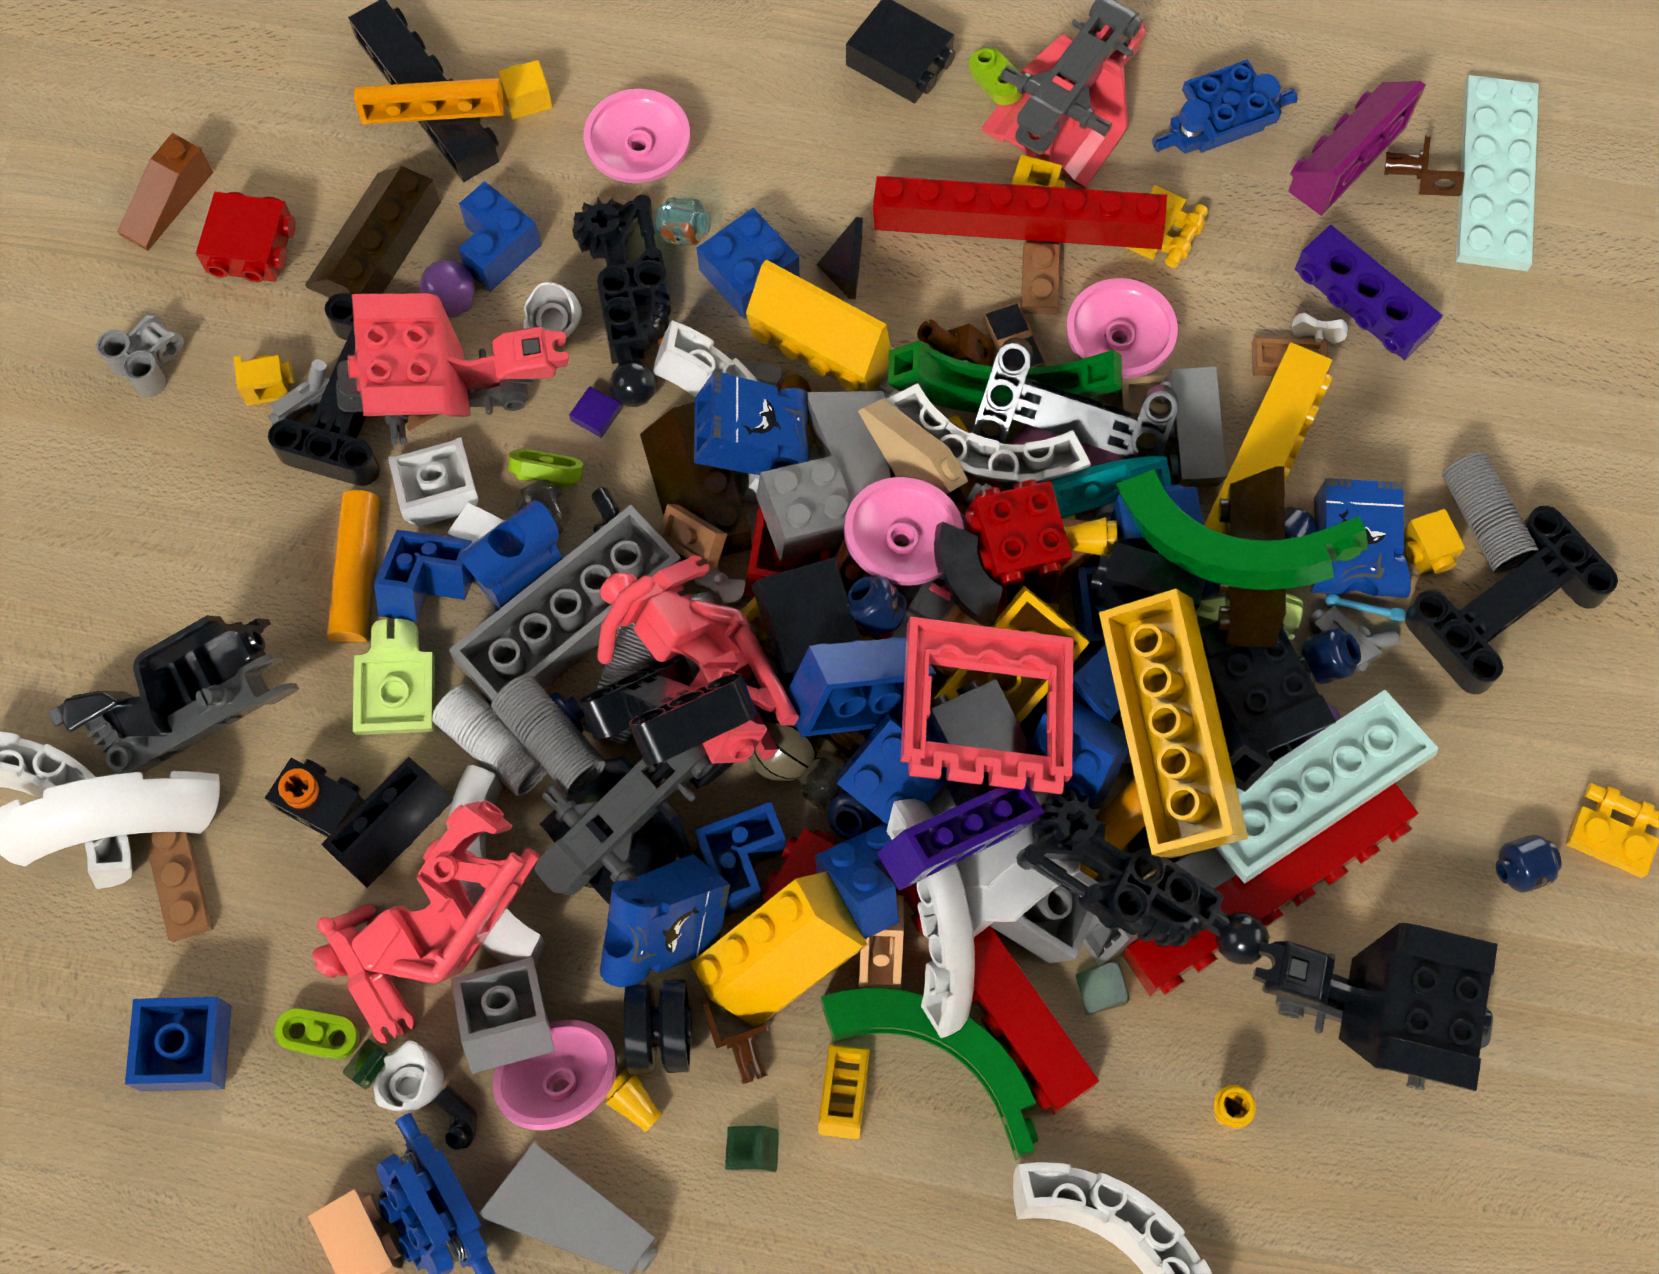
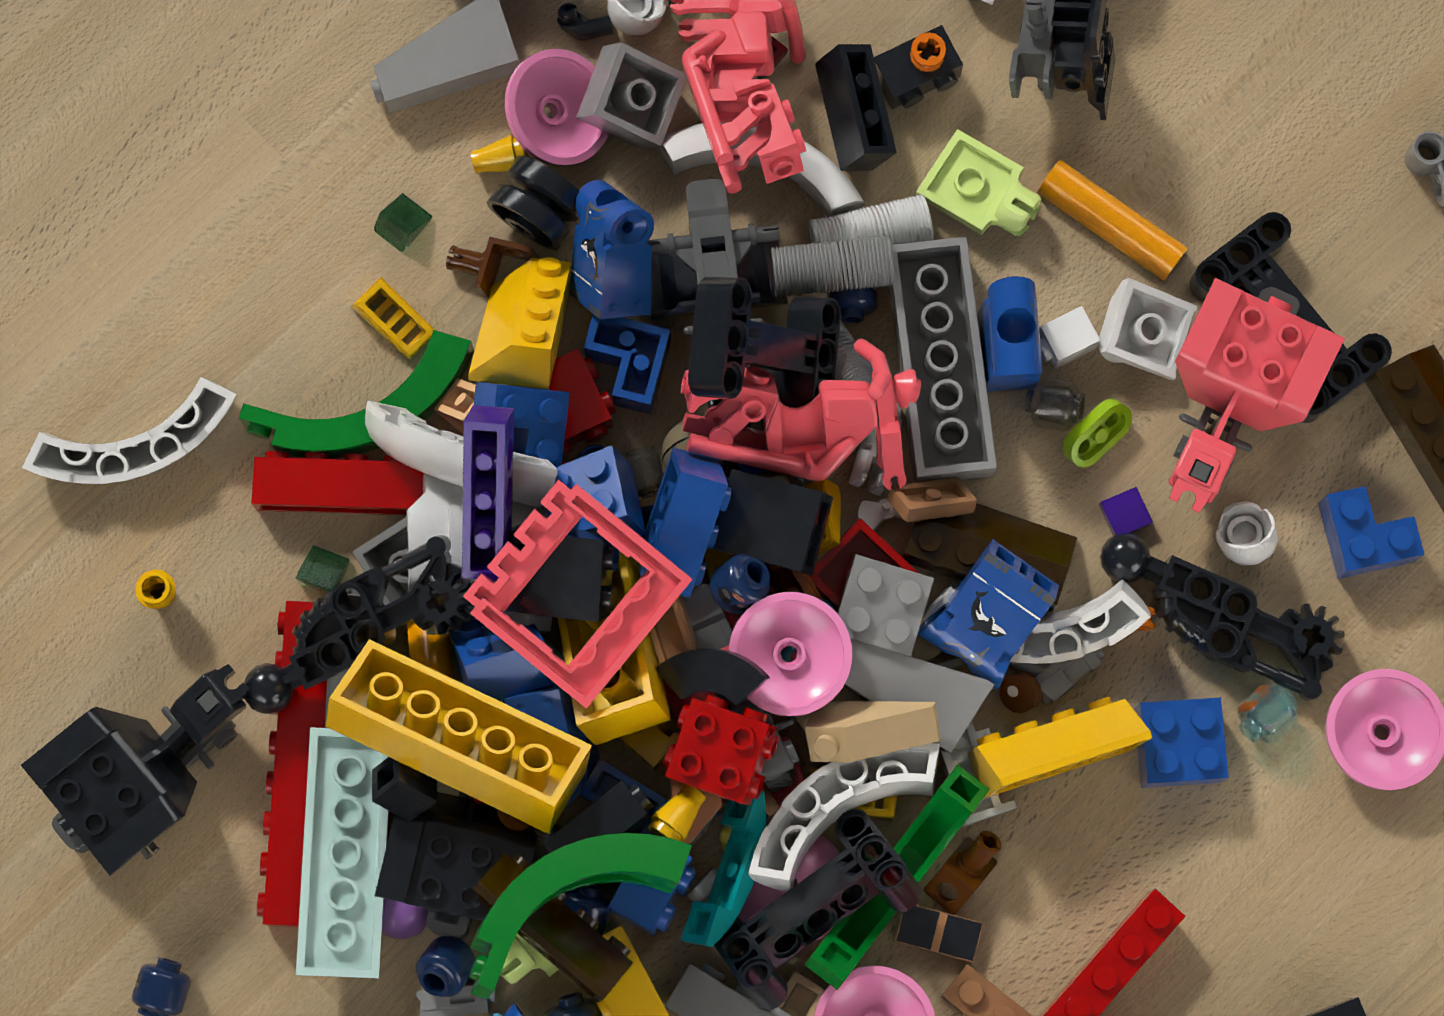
camera: 125 degrees right, 10 degrees up
(263, 378) = (1353, 249): yellow brick -> none
(303, 397) = (1309, 269): light grey piece -> none
(420, 567) = (1067, 258): blue brick -> none
(451, 283) = (1343, 463): medium lavender hair -> none
(605, 505) = (1015, 458): black arm -> none
(843, 259) = (1128, 836): black slope -> none

